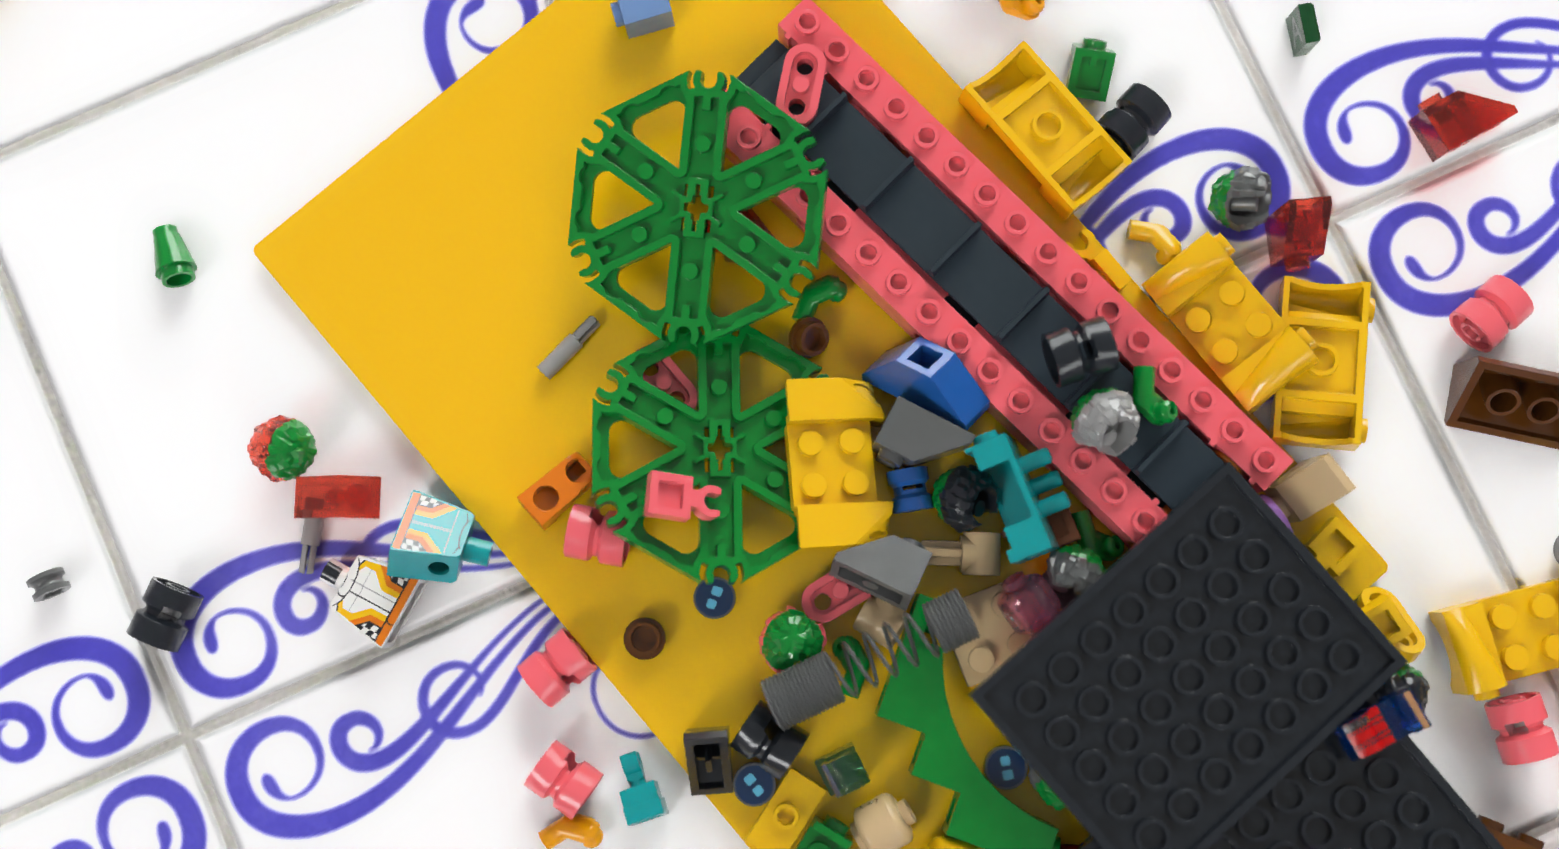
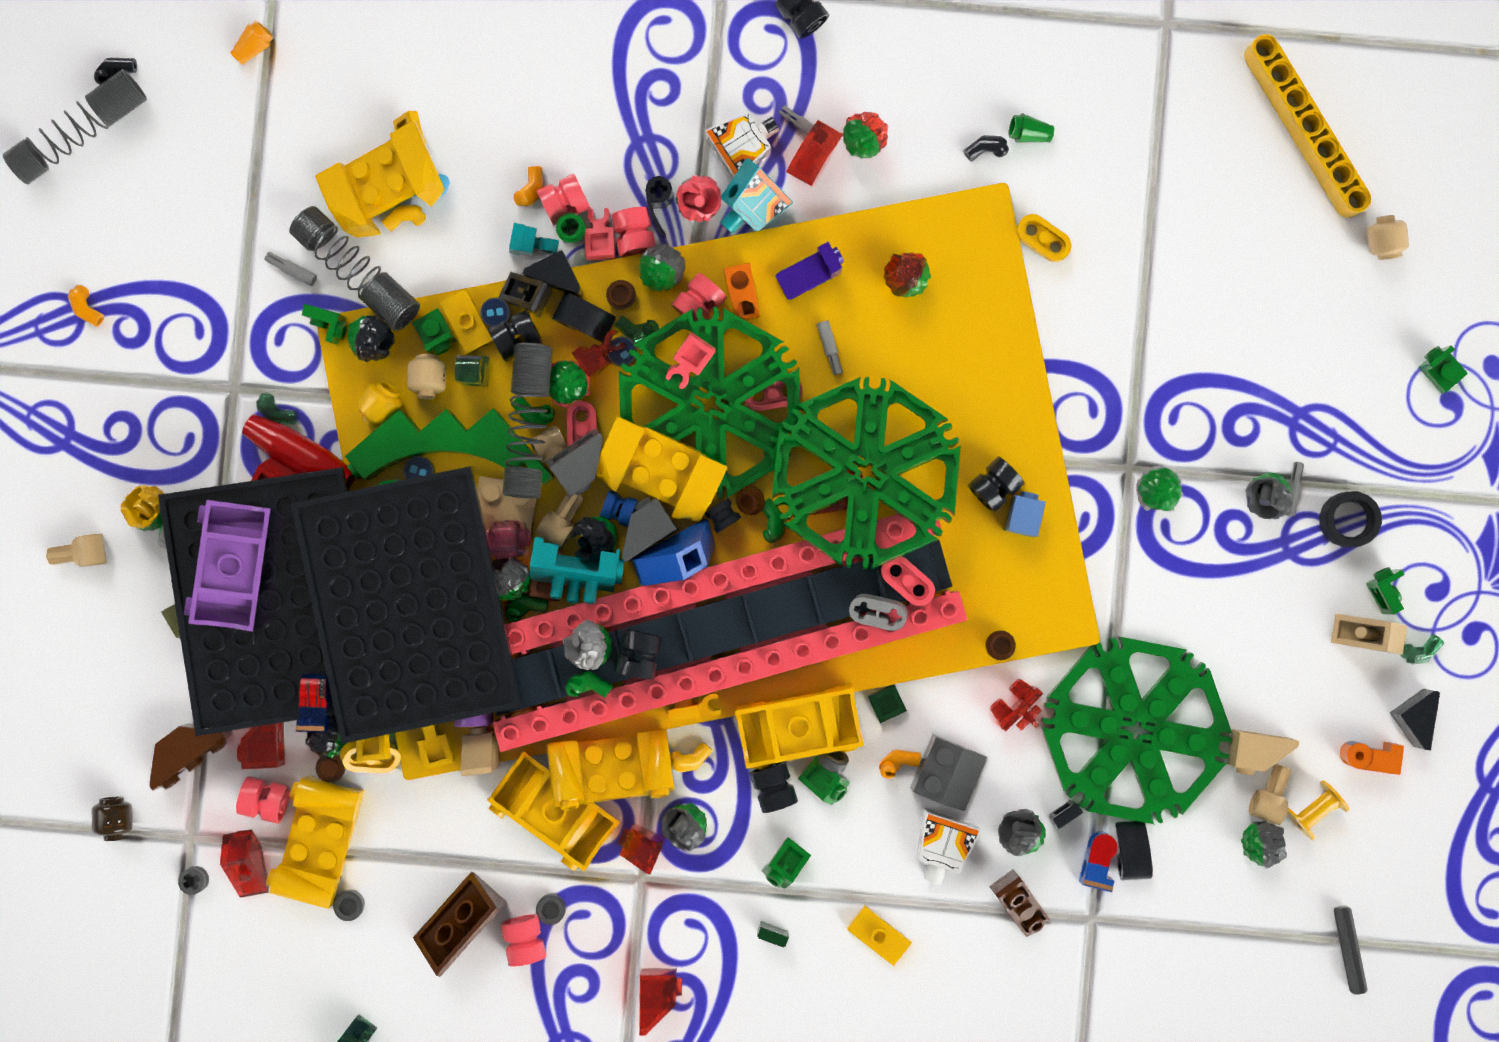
camera: 120 degrees right, 5 degrees up
(212, 290) = (988, 143): none -> black arm
(295, 171) = (1045, 235): none -> yellow plate
(427, 300) = (907, 274): none -> clear red piece
(471, 609) = (698, 198): none -> coral piece
(487, 419) = (810, 271): none -> dark purple bracket
(506, 665) = (658, 203): none -> black panel
(583, 604) = (661, 267): none -> piece
(587, 755) = (568, 222): none -> green cone
(589, 705) = (600, 240): none -> coral plate
(624, 58) = (996, 484): none -> black wheel
(662, 734) = (556, 273): none -> black slope
(680, 592) = (637, 331): none -> clear green arm
(698, 669) = (583, 316): none -> black panel
(741, 623) = (595, 358): none -> clear red piece
(846, 358) = (722, 515): none -> black wheel
(861, 97) = (880, 605): none -> light grey beam
(956, 50) = (887, 703): none -> dark green tile
(1063, 67) = (834, 761): none -> dark grey tile
(1212, 59) = (786, 864): none -> green bracket
(1431, 305) = (551, 909): none -> dark grey tile
(1433, 666) = (330, 769): none -> reddish brown plate
(1465, 764) = (262, 747): none -> clear red slope

